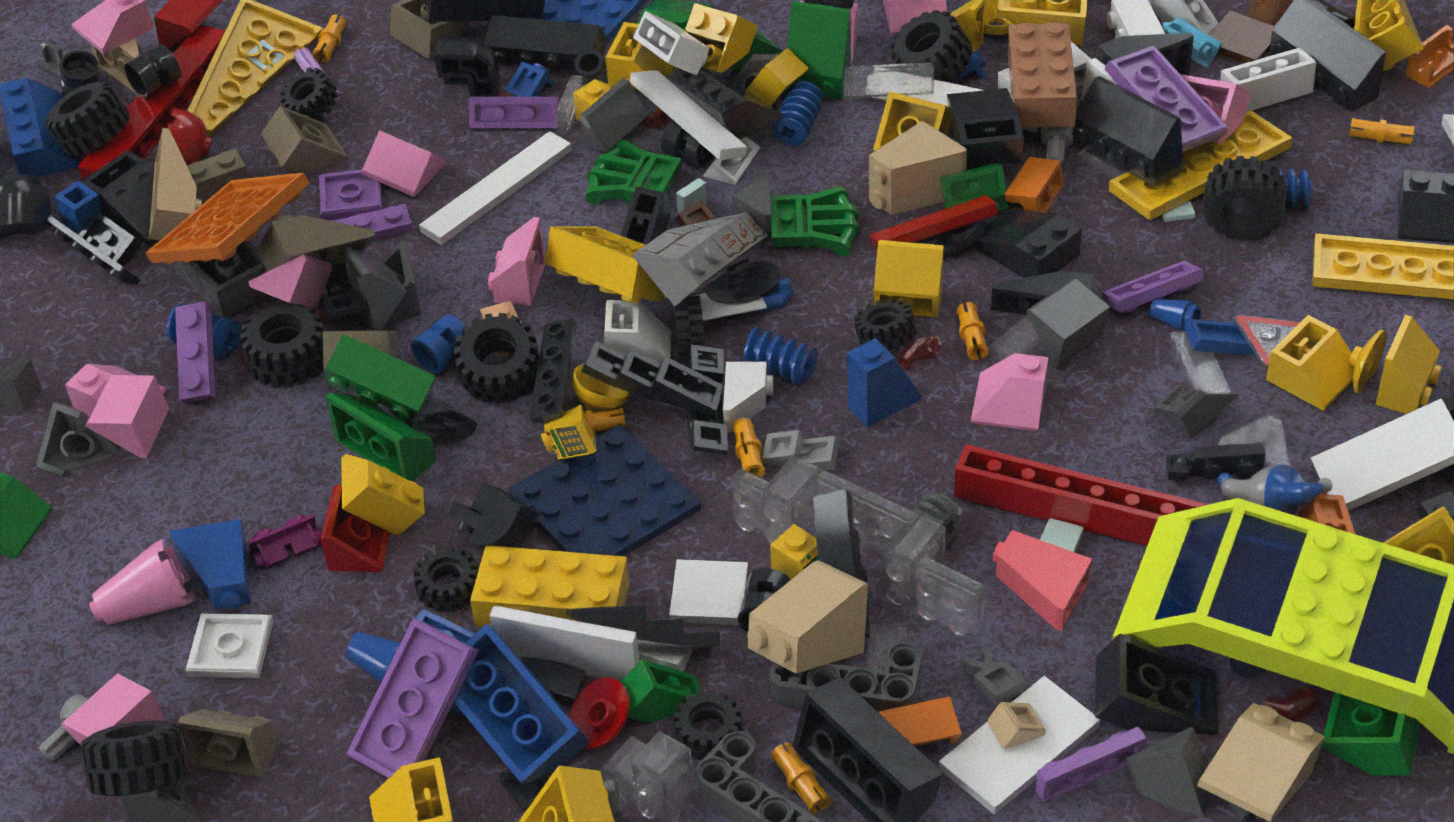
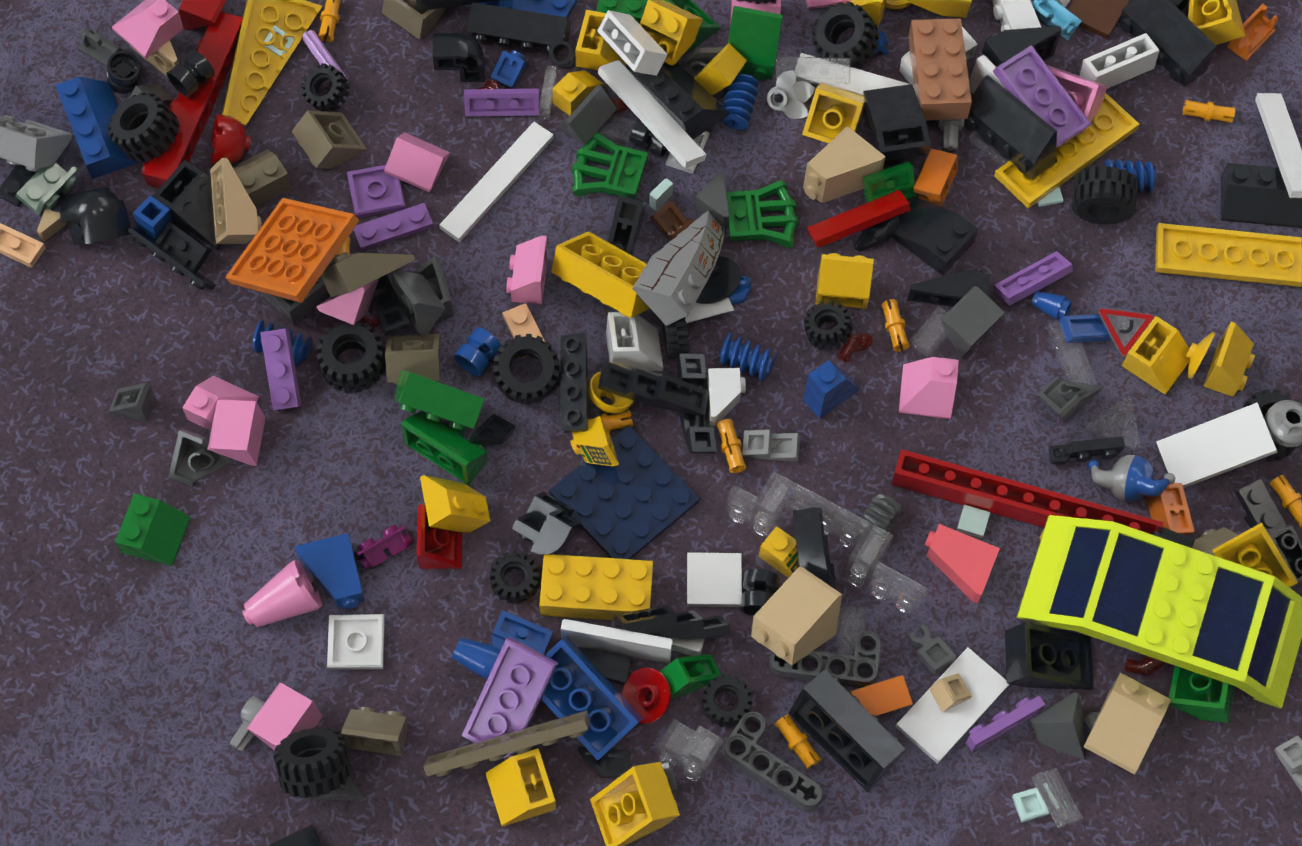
camera: 10 degrees left, 20 degrees up
(415, 750) = (517, 741): none -> dark tan plate
(865, 107) = (794, 95): none -> light grey plate

